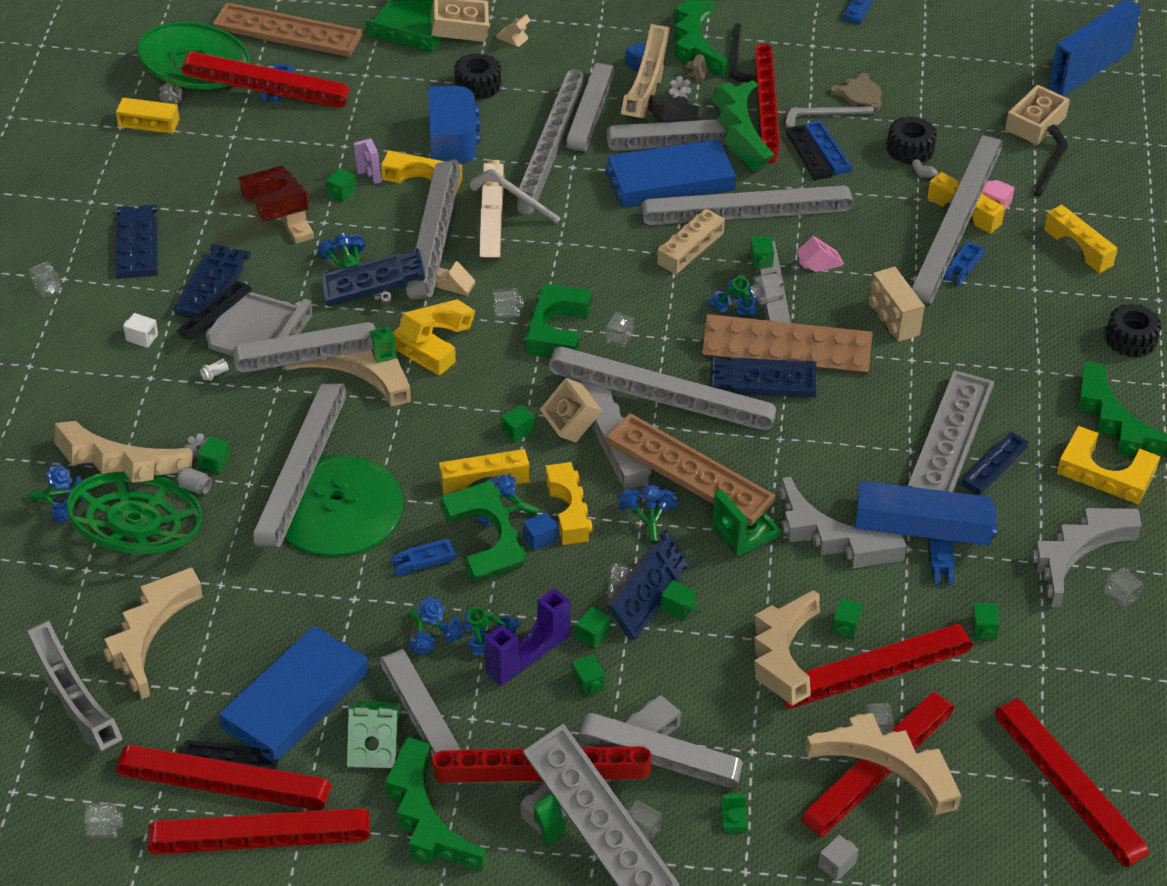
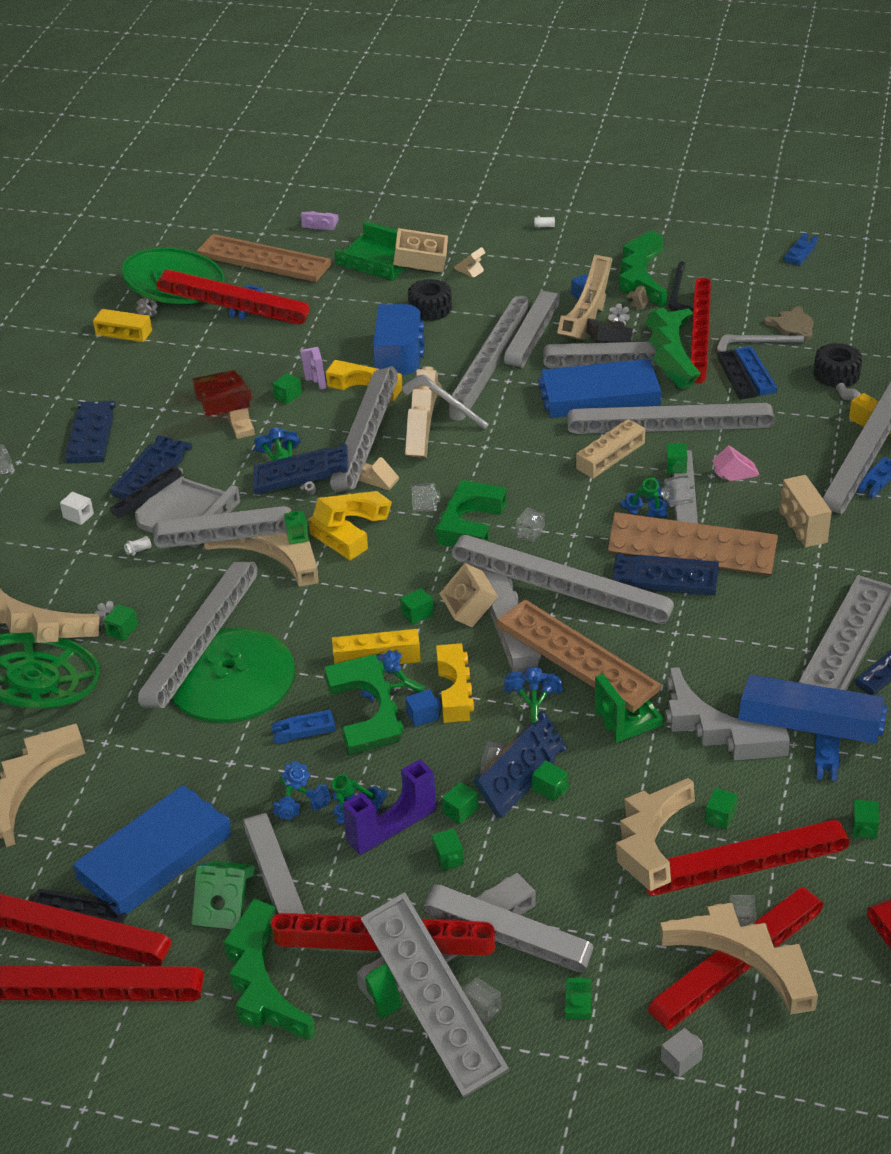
camera: 10 degrees right, 5 degrees down
(194, 481) = (98, 645): light grey brick -> none

